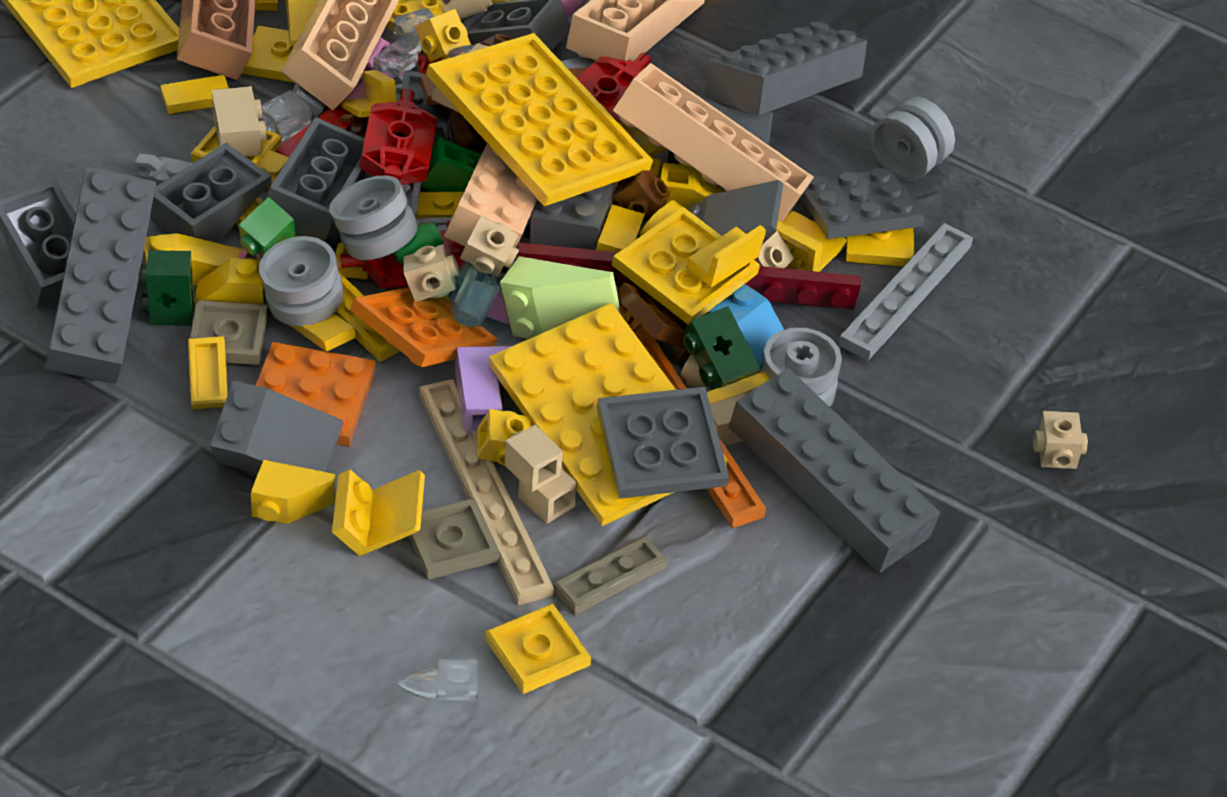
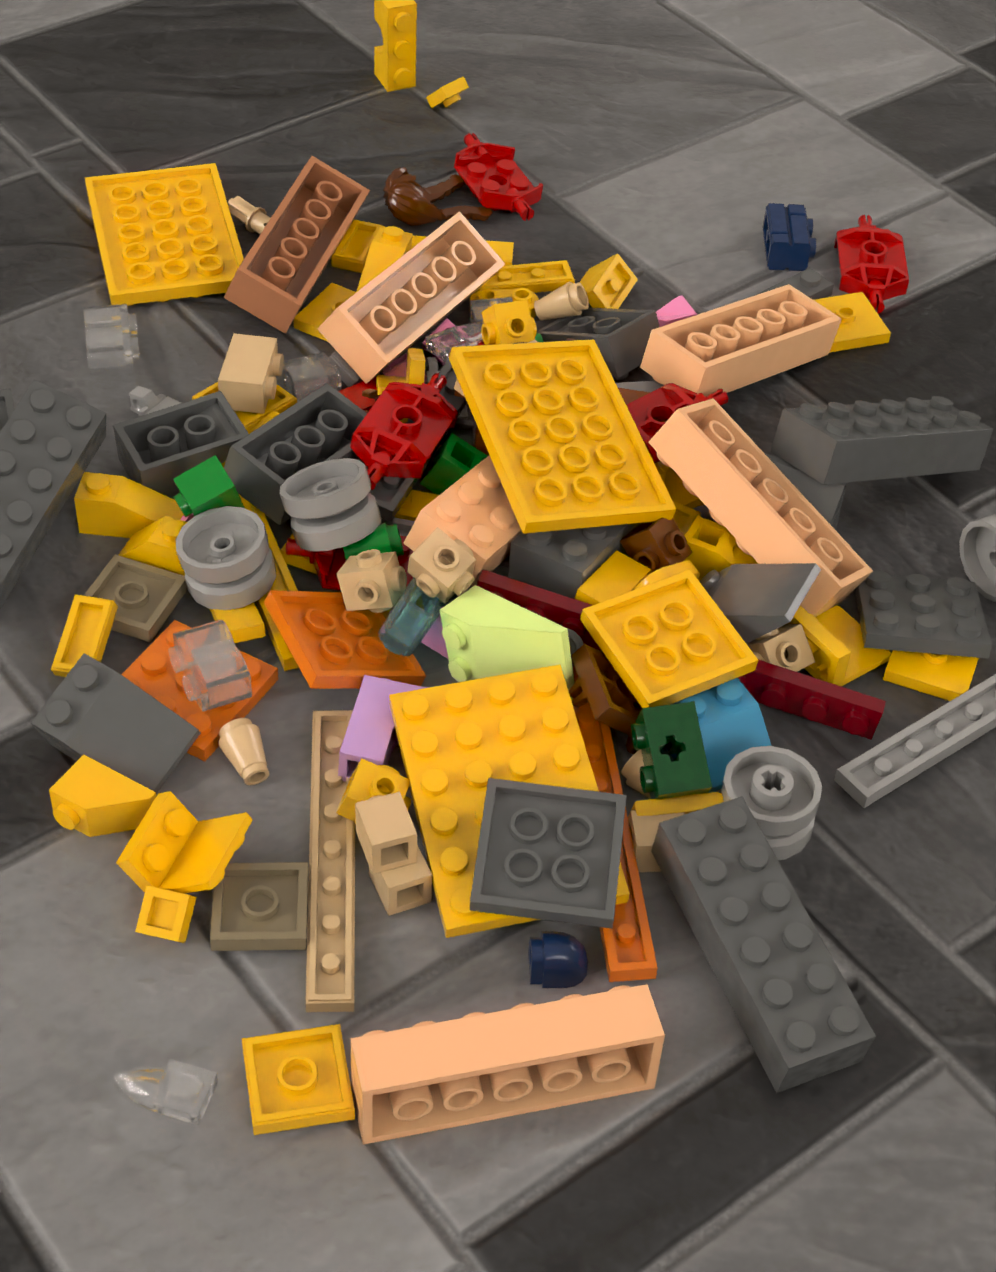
camera: 20 degrees right, 0 degrees up
(89, 116) = (109, 338): none -> clear brick
(169, 288) = (84, 531): dark green brick -> none
(191, 94) = (216, 336): yellow tile -> none
(330, 368) = (210, 665): none -> clear brick
(381, 428) = (244, 749): none -> tan cone
(383, 561) = (165, 914): none -> yellow plate
(610, 575) = (433, 1000): dark tan tile -> none
(687, 522) = (556, 960): none -> dark blue piece
(688, 596) = (505, 1062): none -> light nougat brick
(726, 255) = (718, 639): yellow panel -> none

